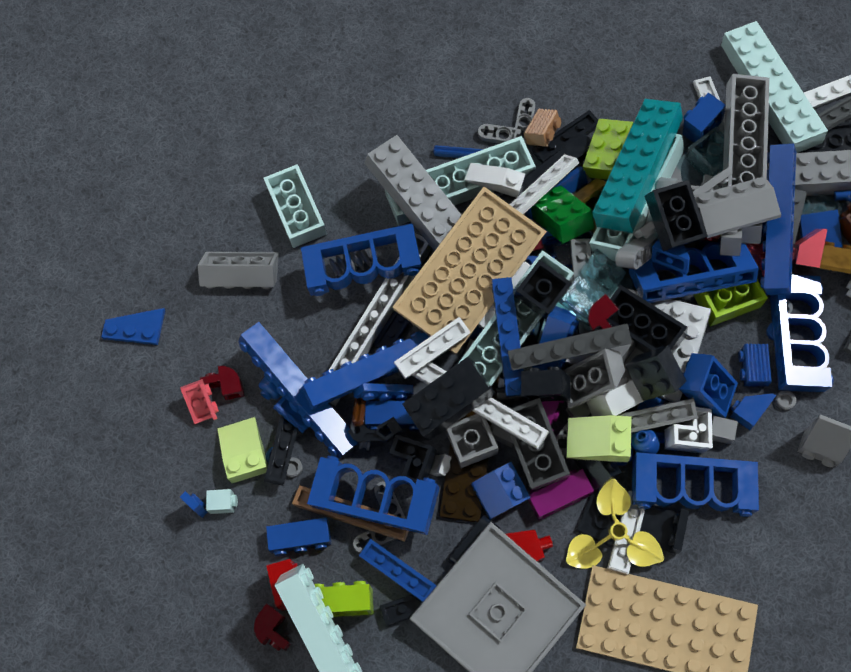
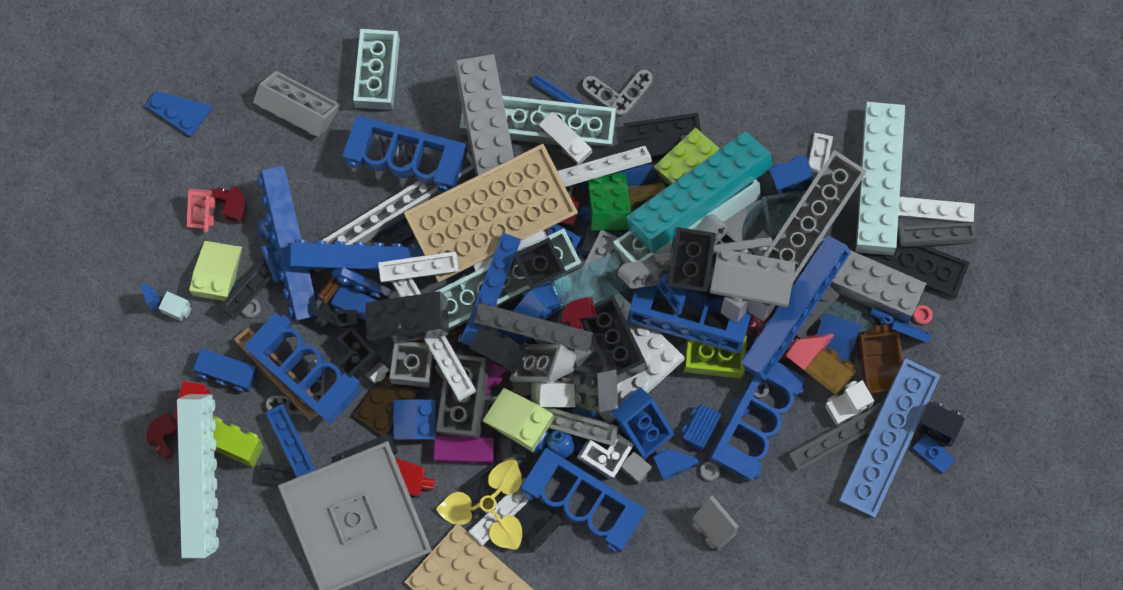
camera: 25 degrees right, 5 degrees up
(542, 127) = (642, 108): medium nougat brick -> none

